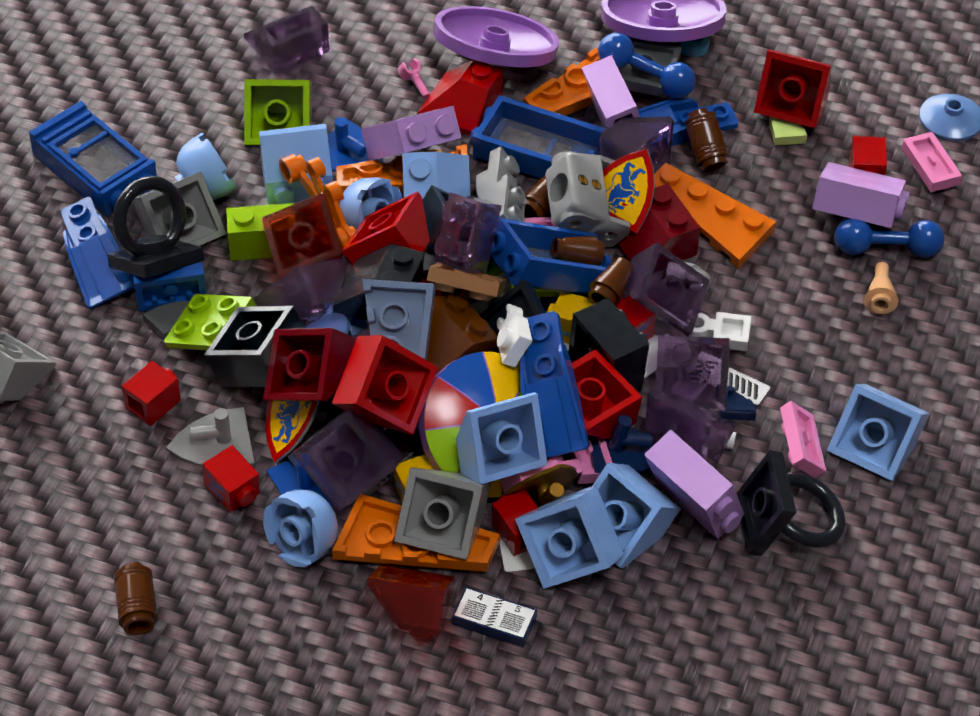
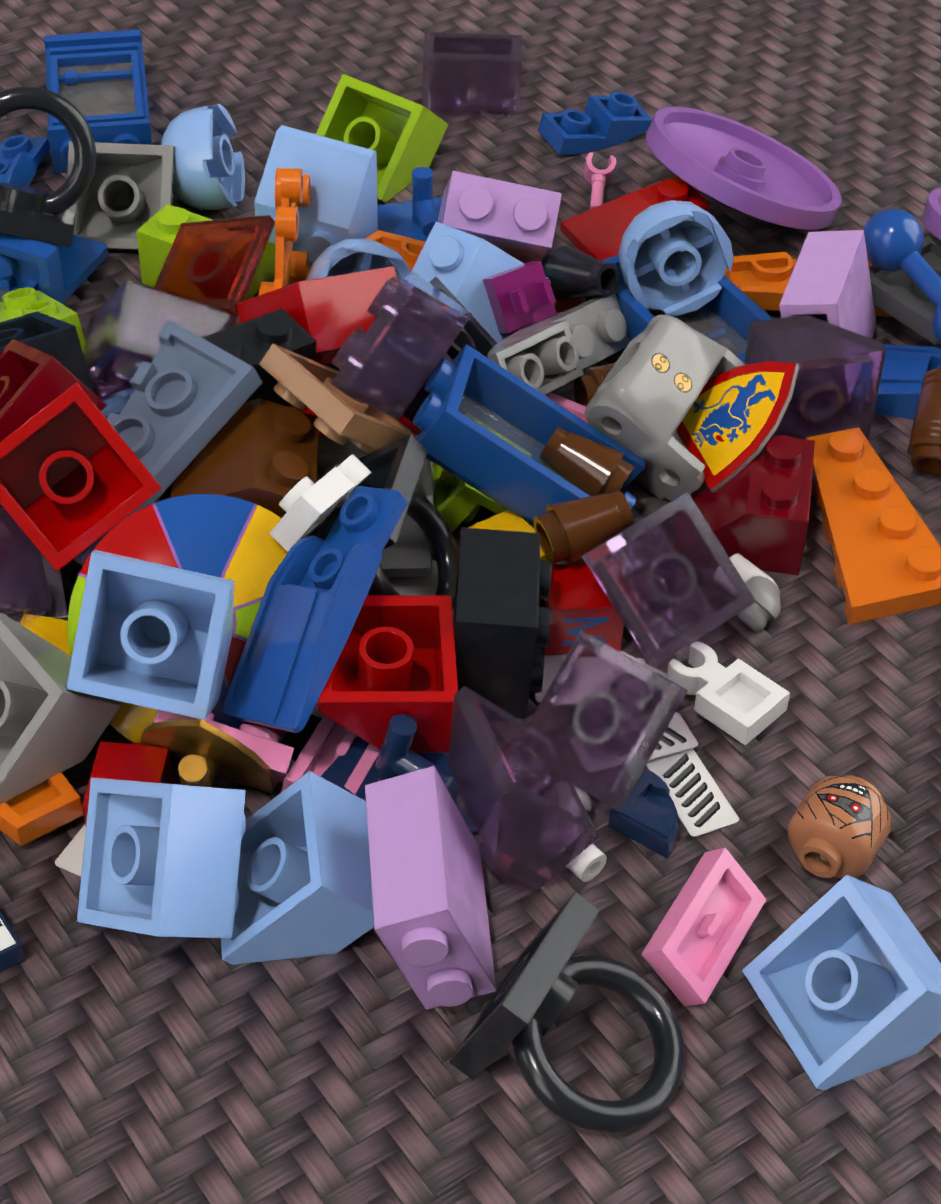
camera: 35 degrees right, 5 degrees down
(381, 40) = (601, 126): none -> blue slope
(466, 172) = (520, 296): none -> magenta tile
(478, 144) = (579, 274): none -> black cone
(519, 111) = (674, 257): none -> light blue cylinder
(818, 365) = (839, 824): none -> nougat head

